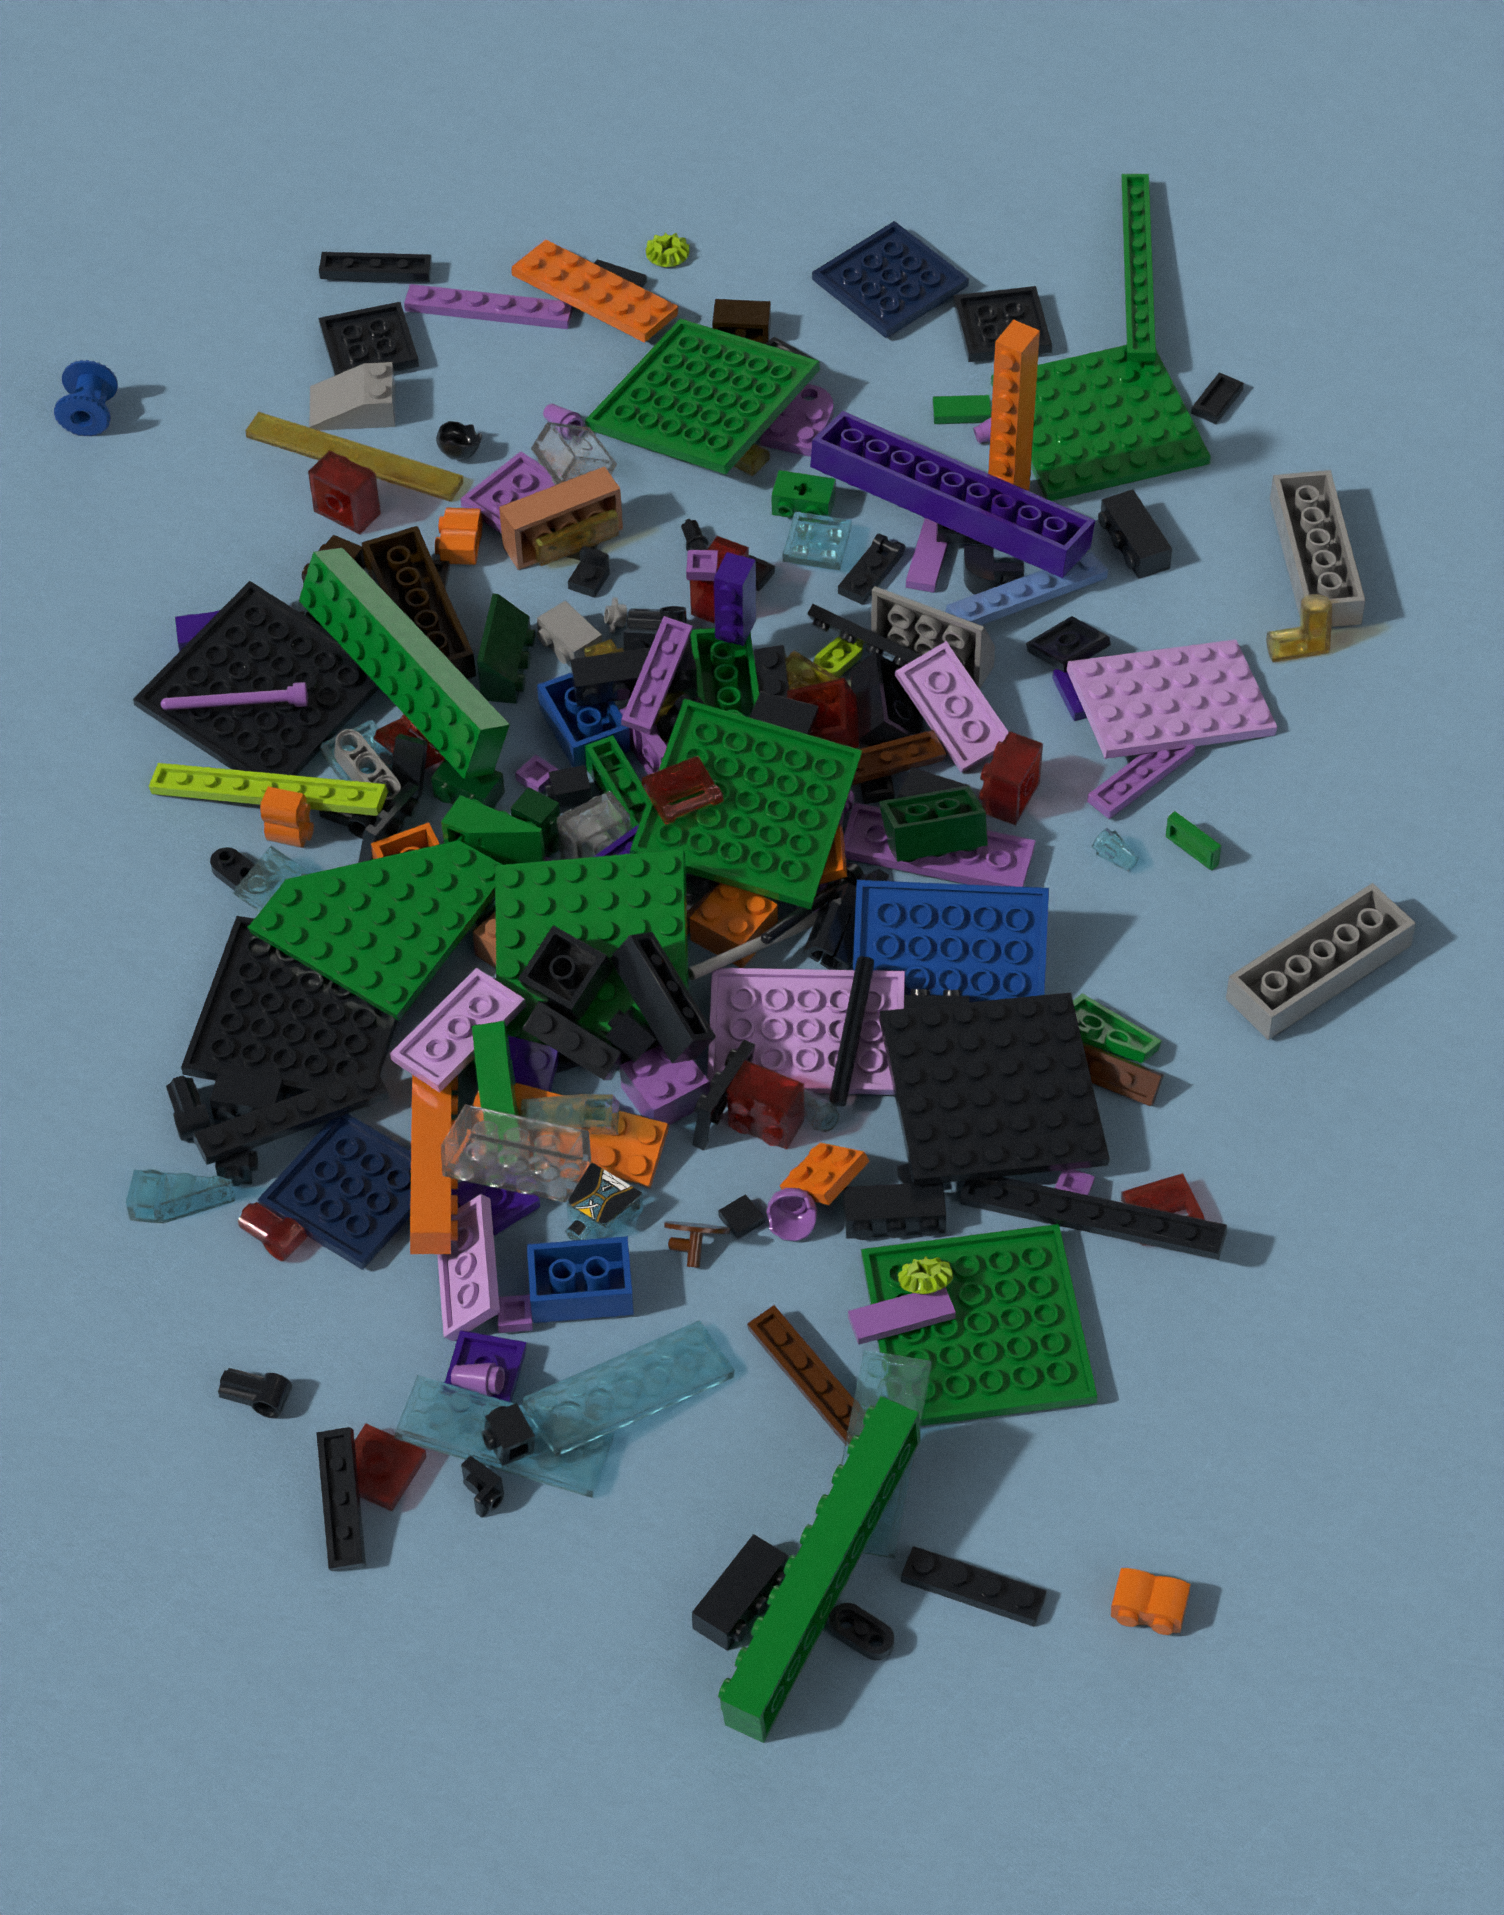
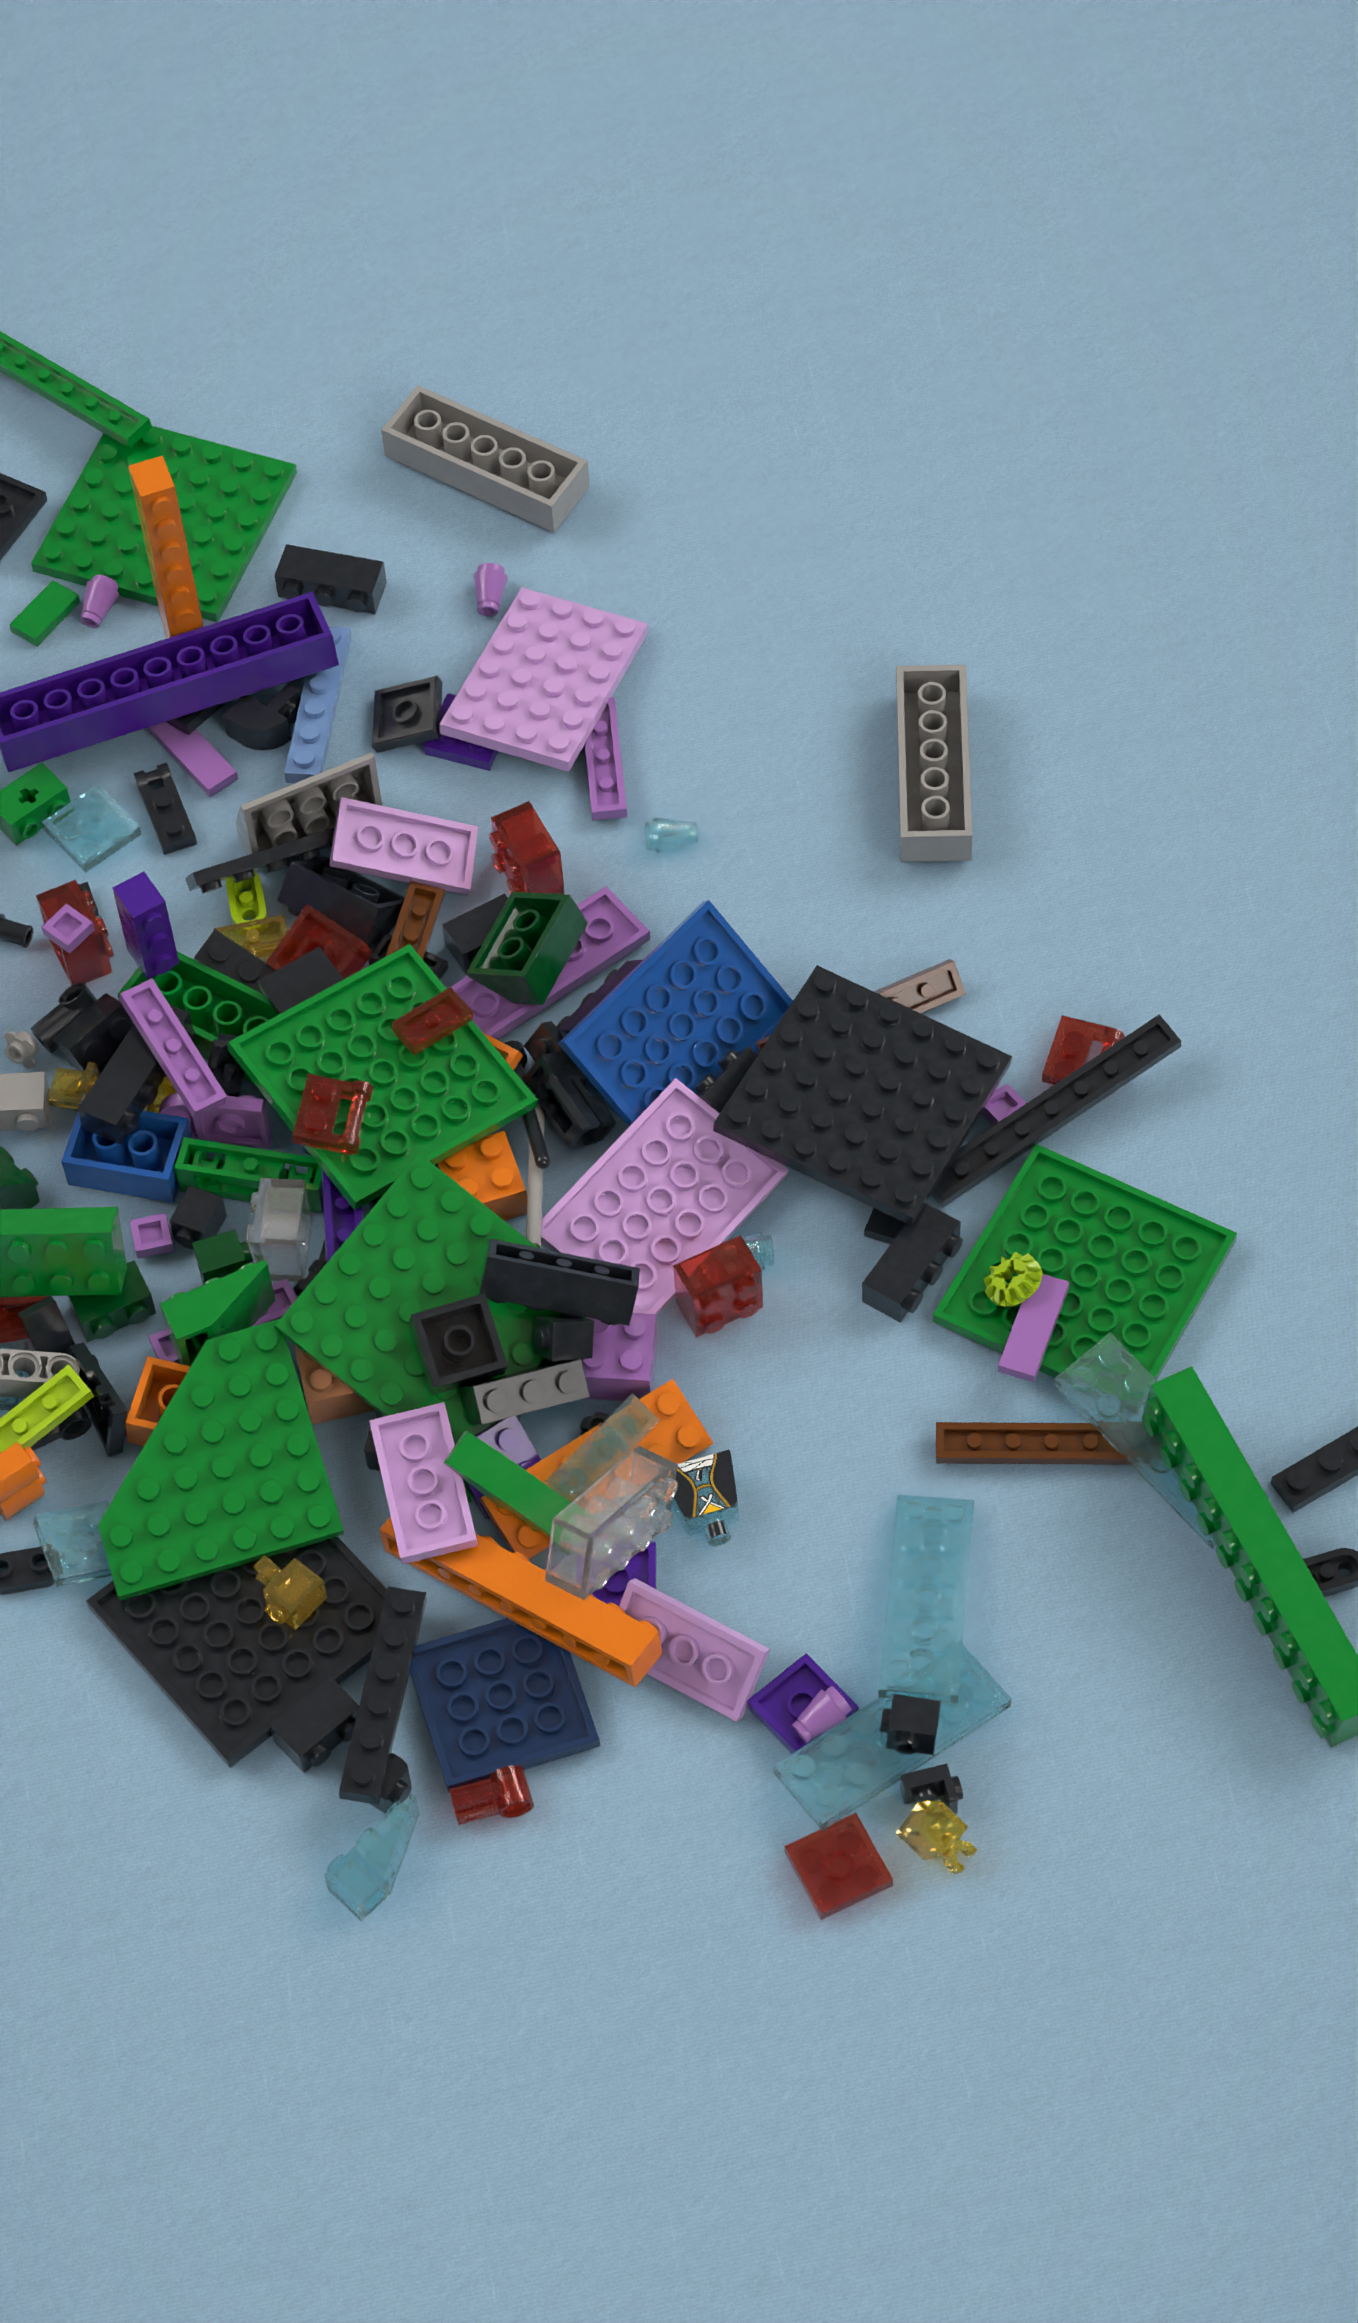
camera: 50 degrees left, 5 degrees up
(188, 1111) = (292, 1789): black piece -> none
(264, 1394) = (673, 1917): black piece -> none
(325, 1015) = (291, 1592): none -> clear yellow brick
(341, 1499) = (857, 1917): black plate -> none
(444, 1508) = (935, 1834): none -> clear yellow brick
(515, 1314) = (769, 1637): medium lavender plate -> none
(580, 1279) = (778, 1562): blue brick -> none
(694, 1243) = (805, 1432): reddish brown shield -> none
(711, 1106) = (678, 1312): black wing -> none
(740, 1593) = (1215, 1644): black brick -> none
(741, 1216) = (809, 1390): black tile -> none
(791, 1214) = (849, 1344): medium lavender hair -> none
(808, 799) = (432, 1021): none -> clear red plate
(826, 1171) = (828, 1290): orange plate -> none
(851, 1031) = (701, 1163): black axle -> none
(1113, 1032) = (871, 965): green wing -> none
(1193, 841) = (715, 769): green tile -> none
(1217, 398) = (230, 414): black tile -> none
(1217, 622) = (489, 587): none -> medium lavender cone
(1307, 639) = (574, 531): clear yellow brick -> none

